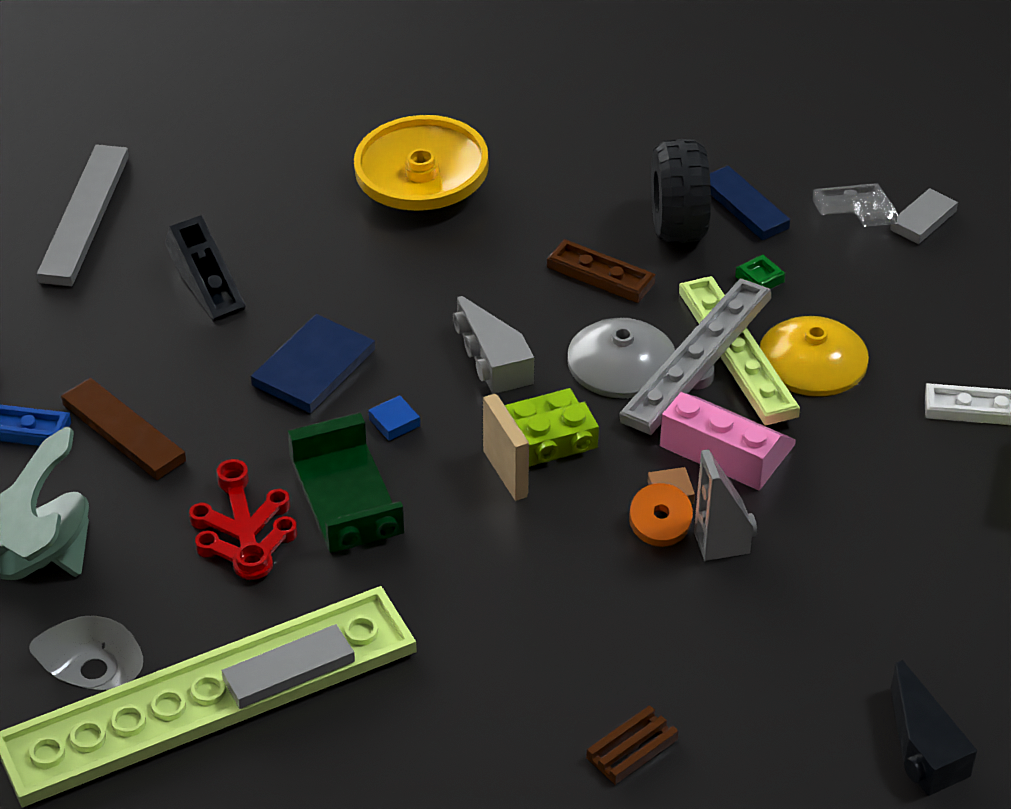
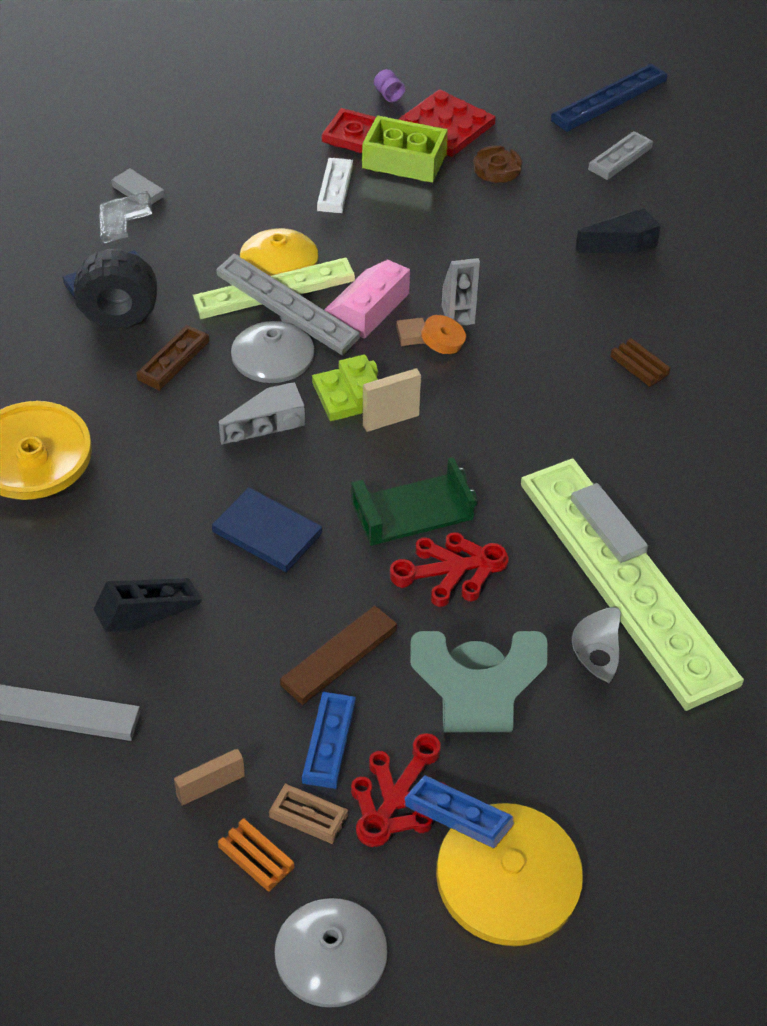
camera: 90 degrees left, 5 degrees up
(394, 418) = (334, 478): blue tile -> none
(761, 272) = (190, 273): green tile -> none

